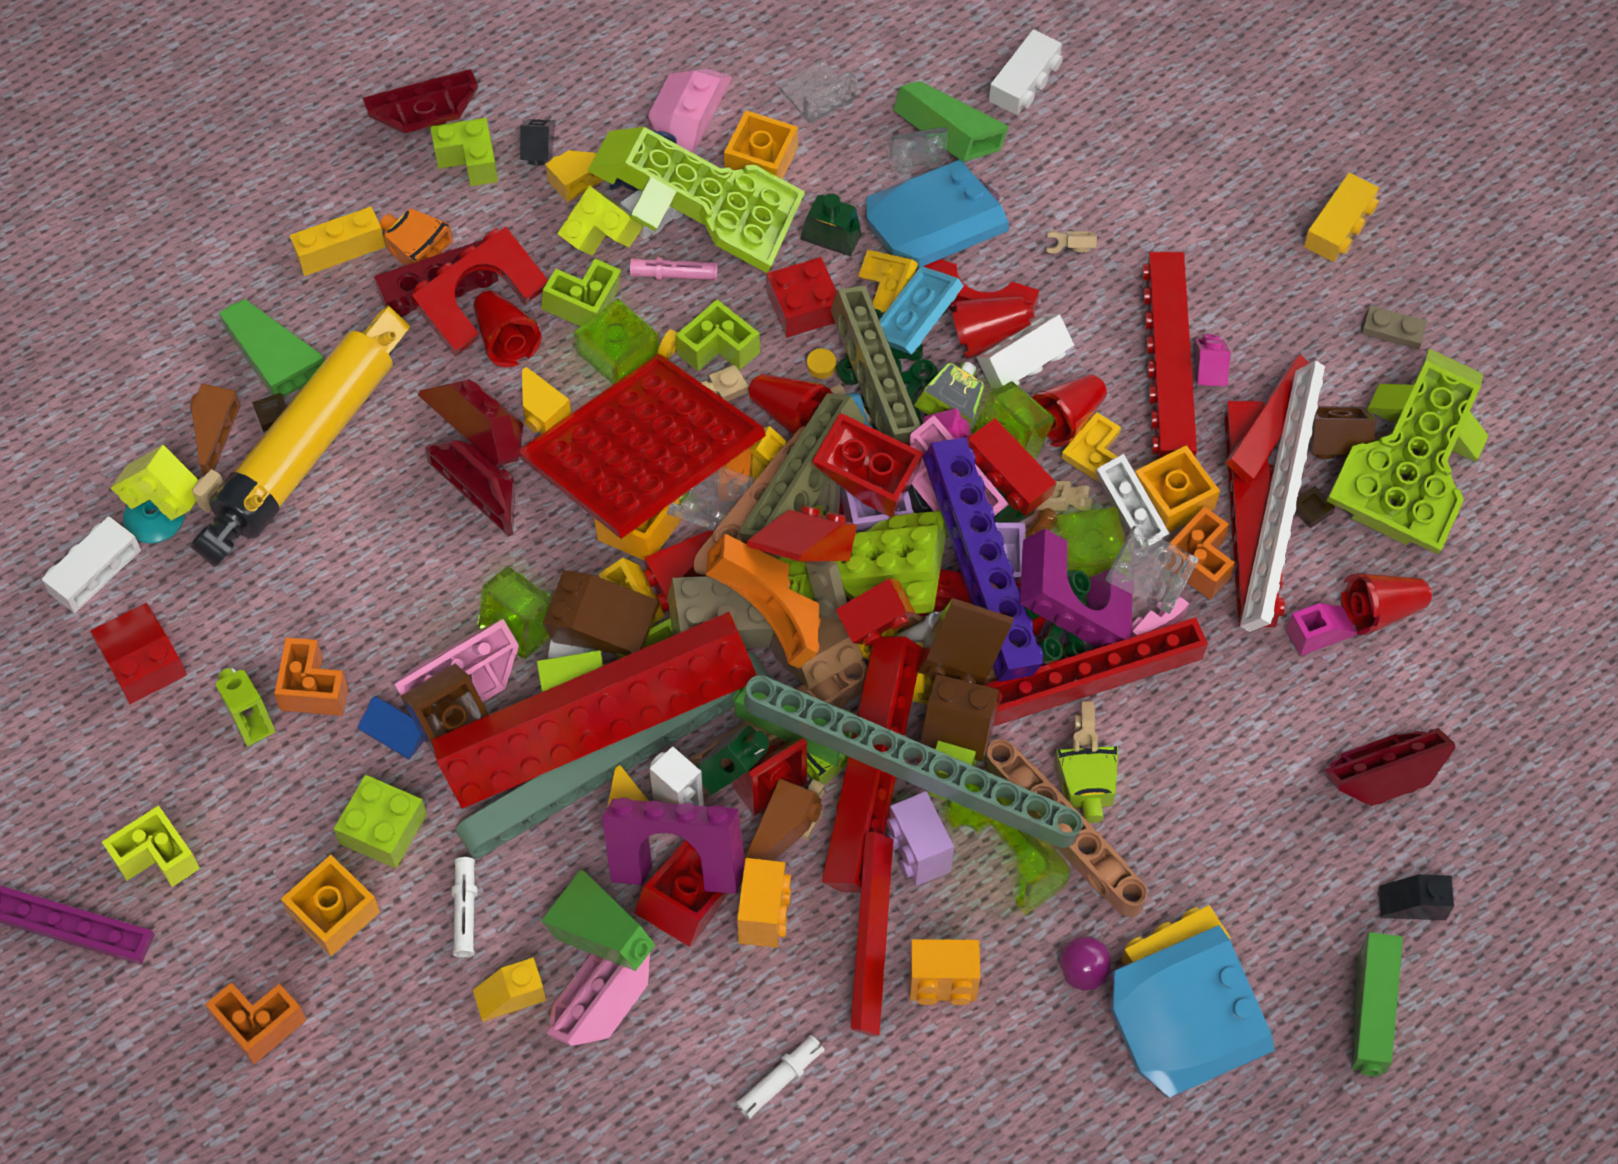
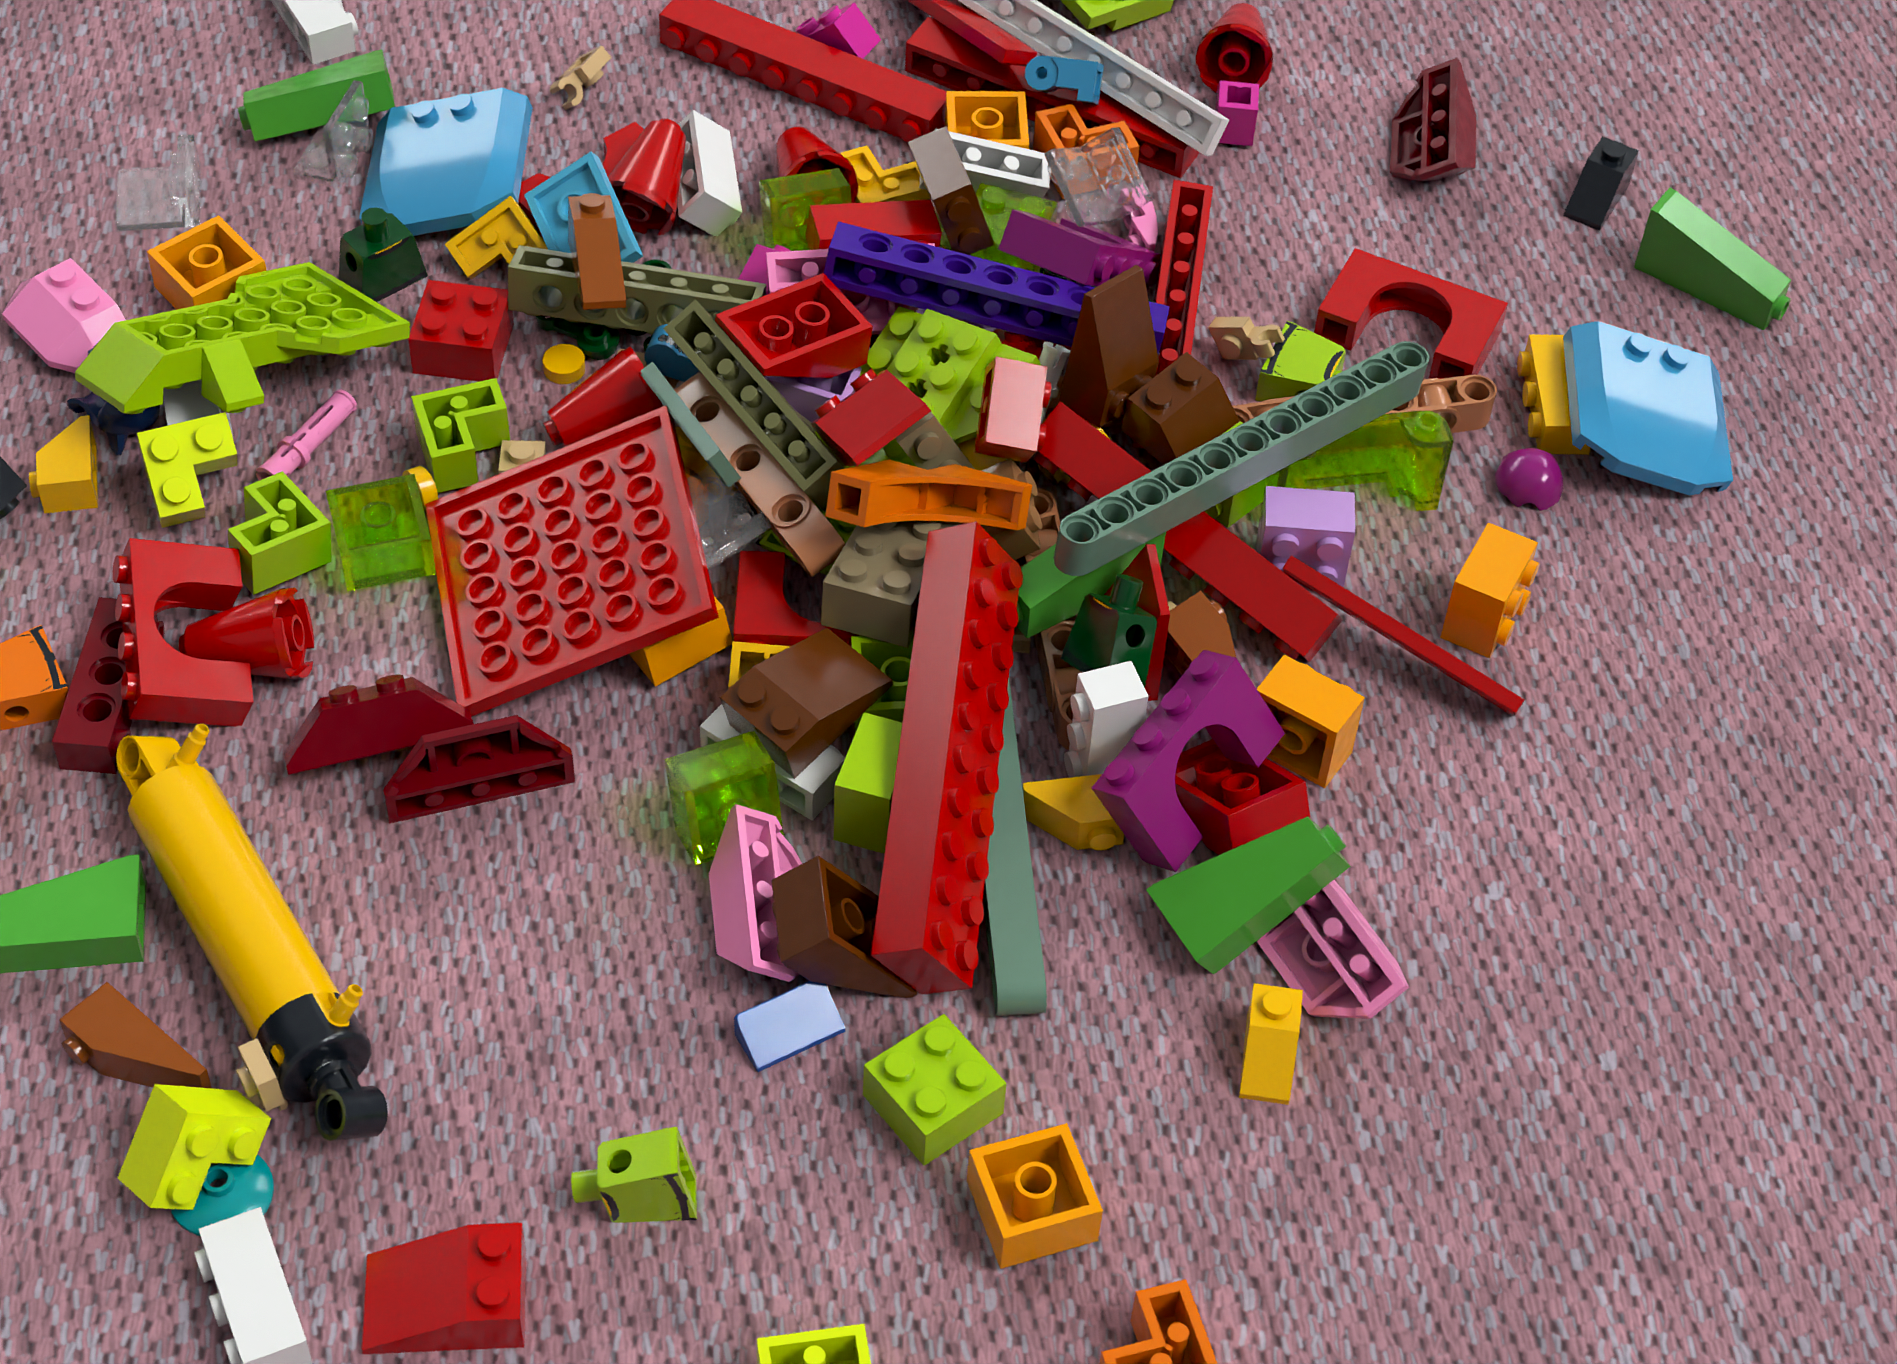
camera: 65 degrees left, 10 degrees down
(269, 410) = (166, 965): dark brown plate -> none
(304, 685) = (661, 1090): orange brick -> none
(464, 942) = (1125, 1054): white pin -> none
(542, 403) = (403, 647): yellow slope -> none
(763, 448) = (690, 425): none -> sand green tile
(780, 1076) = (1527, 800): white pin -> none
(871, 326) = (596, 251): none -> dark orange slope
(953, 389) = (712, 250): torso -> none
(1067, 490) = (951, 192): none -> reddish brown brick
(1200, 786) = (1377, 285): none -> red arch
(1247, 508) = (1056, 73): none -> dark azure leg

